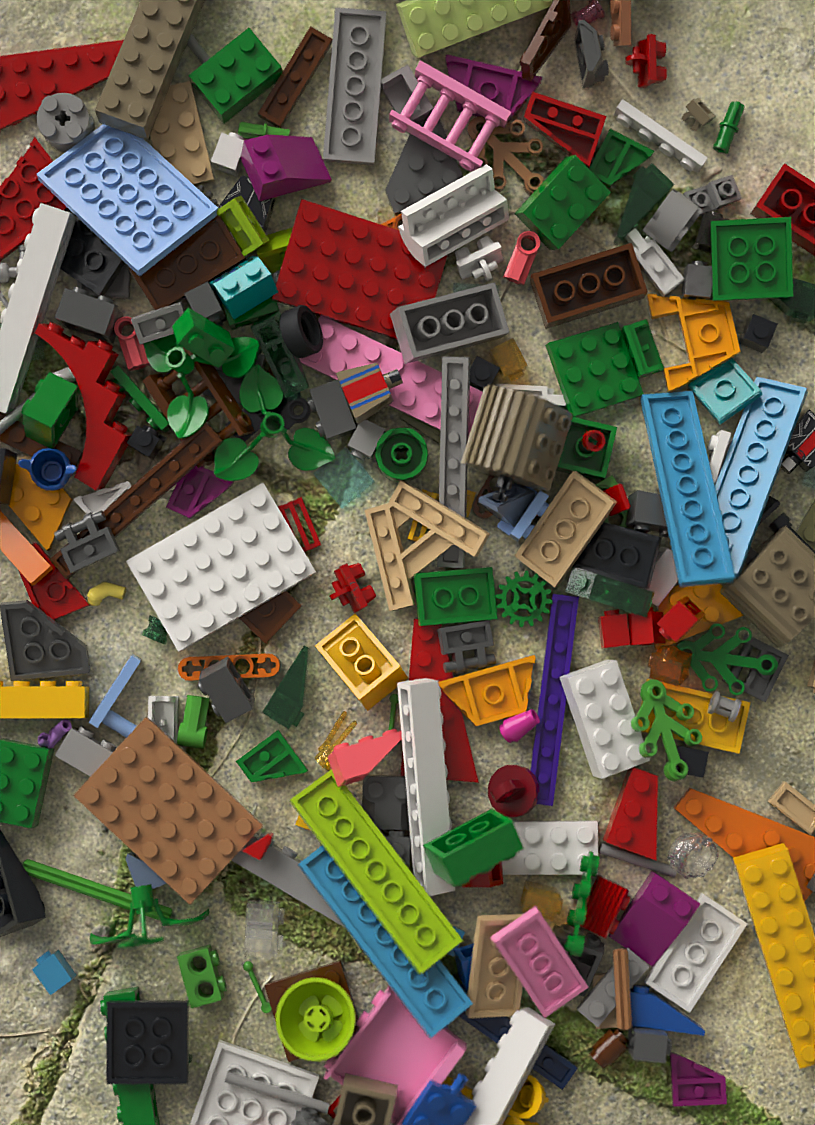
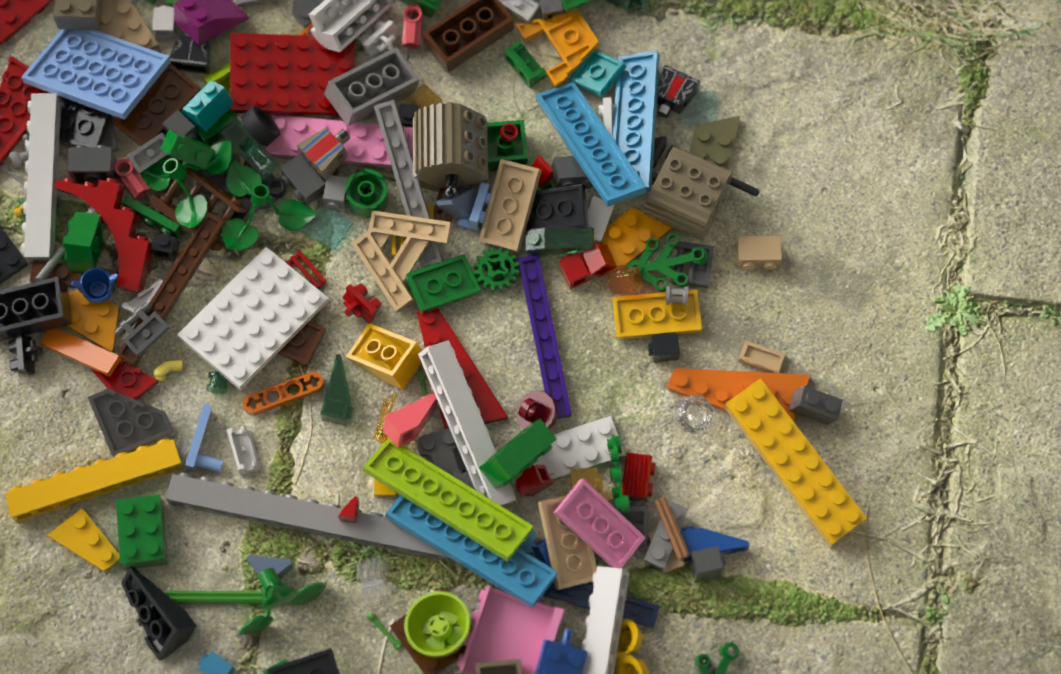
camera: 20 degrees left, 15 degrees down
(55, 734) = (162, 484): medium lavender arm -> none
(58, 109) = (30, 36): light grey brick -> none
(168, 810) = (269, 509): medium nougat plate -> none
(193, 728) = (269, 446): bright green piece -> none
(194, 976) = (333, 635): bright green brick -> none
(196, 492) = (216, 270): magenta wing -> none
(226, 690) = (286, 407): dark grey brick -> none
(243, 225) = (191, 65): lime hinge -> none
(271, 760) = (339, 451): green wing -> none
(464, 638) = (463, 310): dark grey plate -> none
(492, 692) = (495, 345): light orange wing -> none
(518, 726) = (524, 362): dark pink cone -> none
(594, 369) = (494, 88): green plate -> none
(603, 718) = (588, 334): white brick -> none
(609, 1048) = (679, 583): reddish brown brick -> none
(635, 814) = (638, 400): red wedge -> none
(637, 860) = (640, 436): light grey bar -> none
(654, 918) = (680, 471): magenta slope -> none
(664, 725) = (621, 305): bright green plant -> none
(680, 619) = (619, 240): red brick -> none
(695, 1084) = (757, 589): magenta wing -> none
(696, 954) = (721, 489): white plate -> none
(758, 333) = (608, 25): black brick -> none

